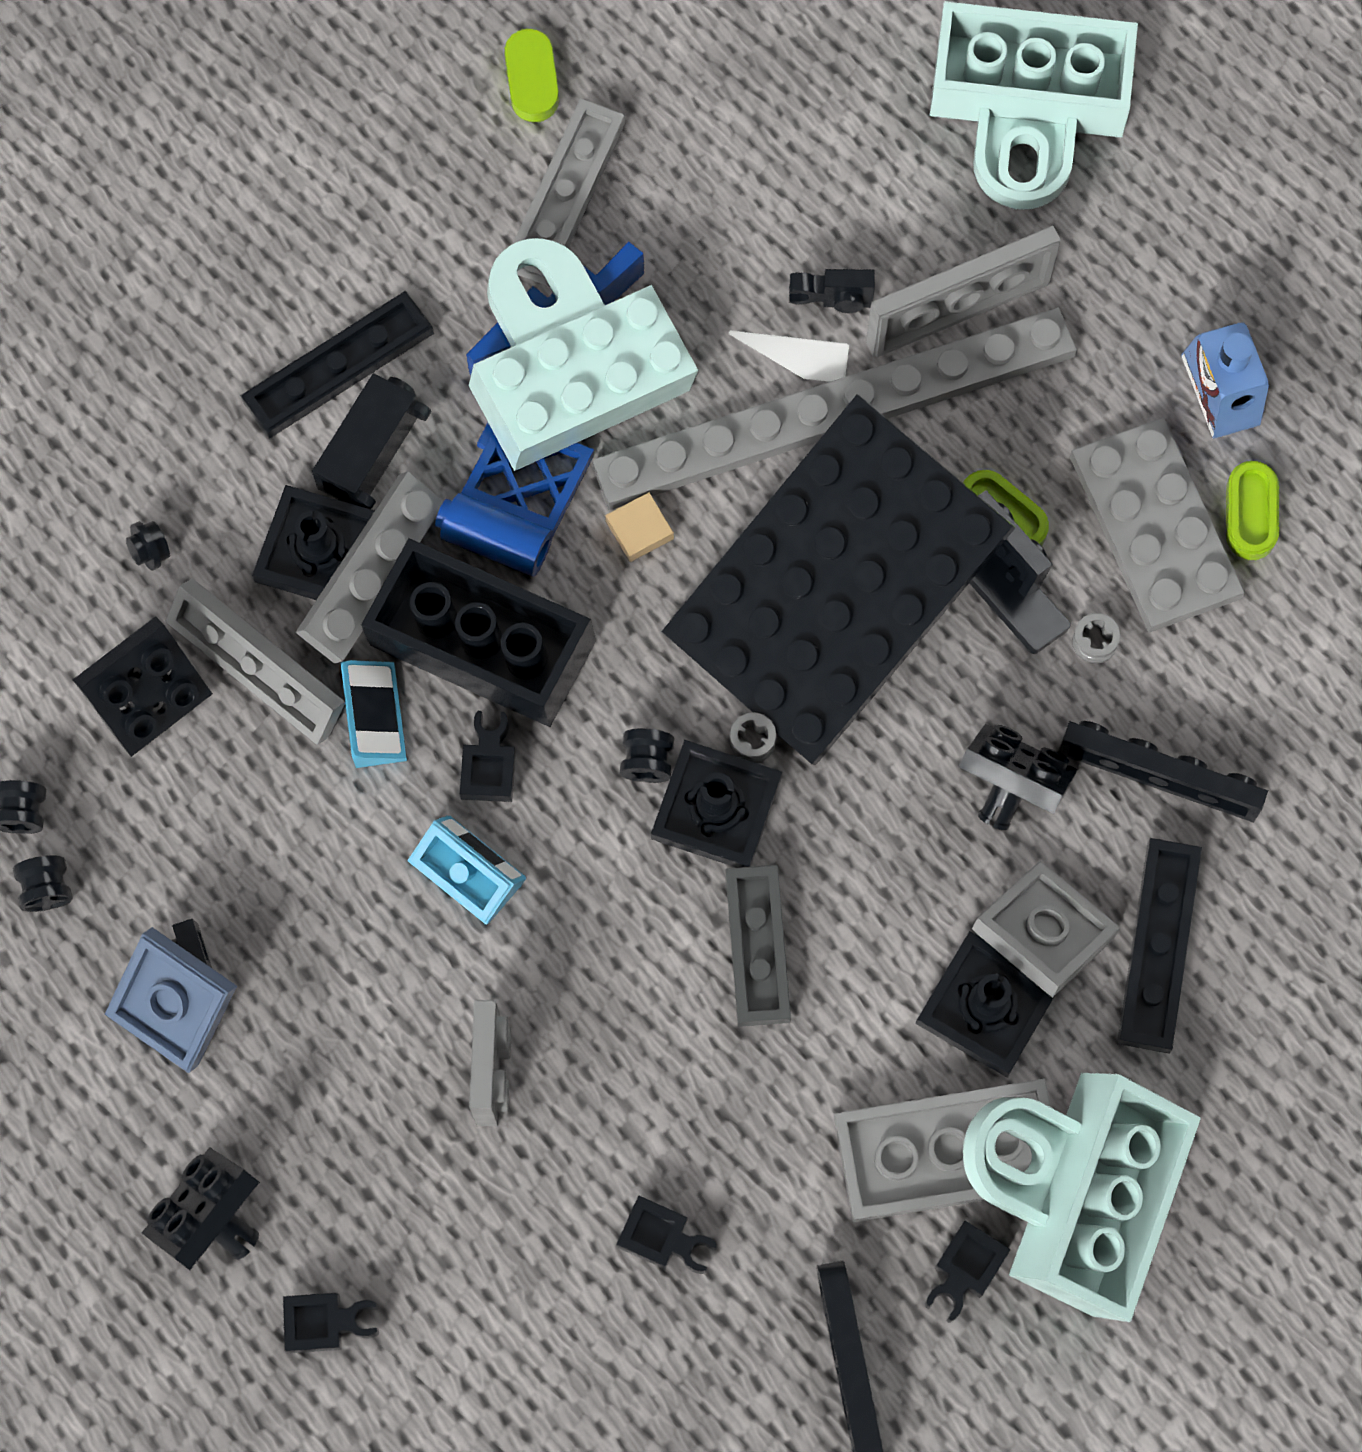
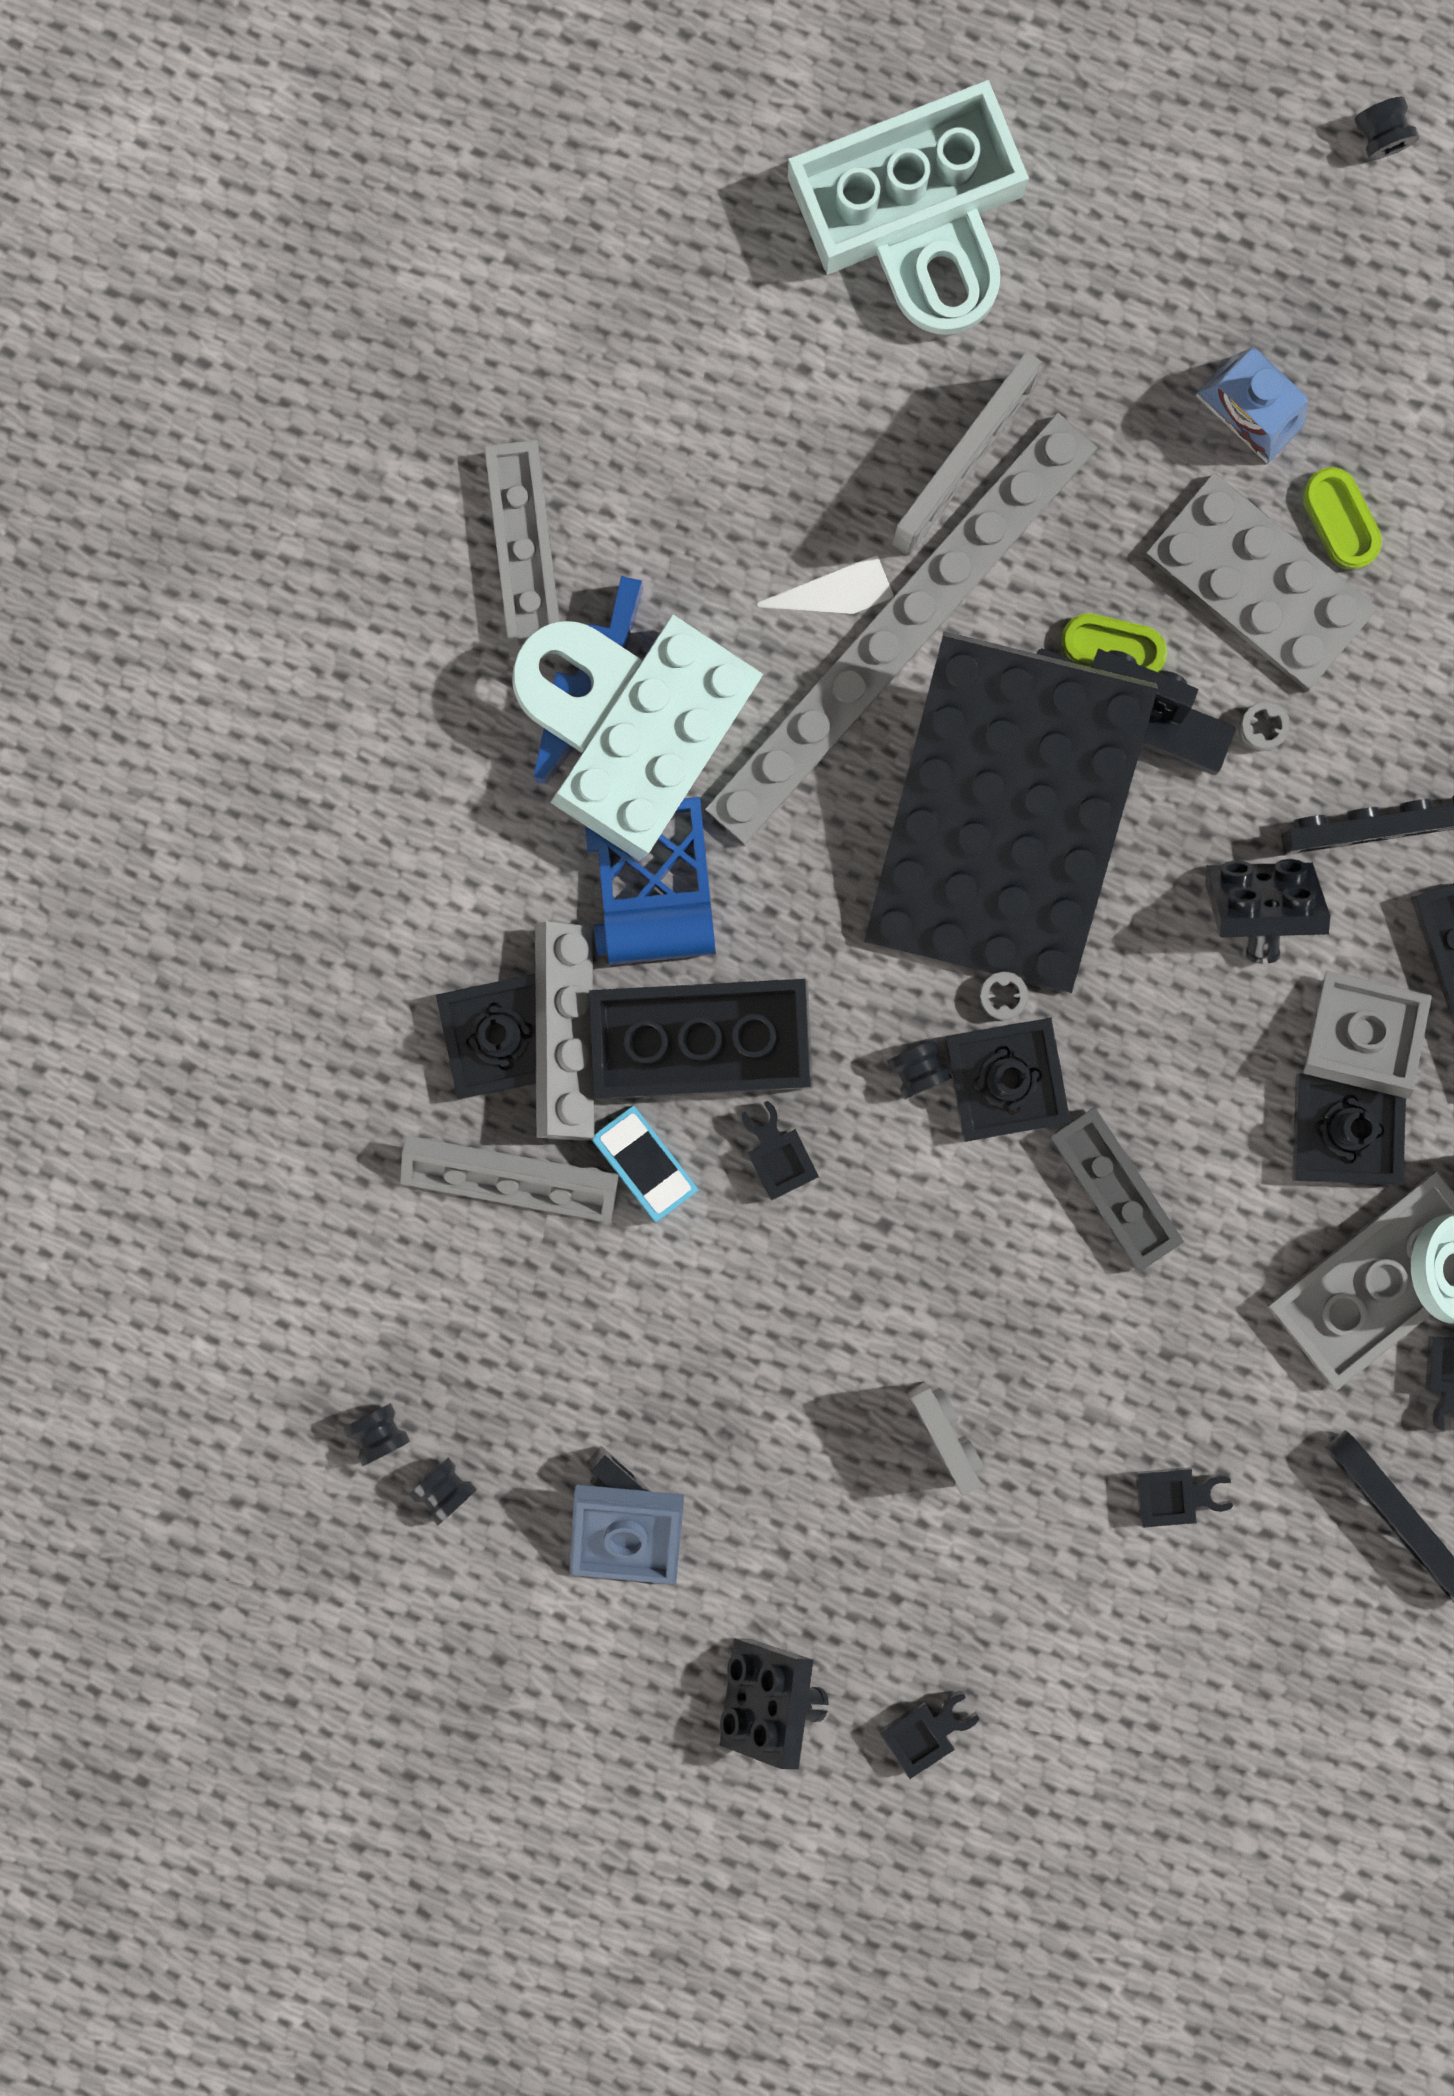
camera: 30 degrees left, 15 degrees up
(138, 675) = (424, 1264): black plate -> none
(147, 544) = (340, 1122): black plate -> none
(337, 364) = (408, 843): black tile -> none
(368, 440) = (486, 906): black brick -> none
(466, 868) = (813, 1260): medium azure slope -> none
(531, 75) = (418, 442): lime tile -> none
(639, 527) = (785, 849): tan tile -> none
(839, 288) = (849, 508): black plate -> none

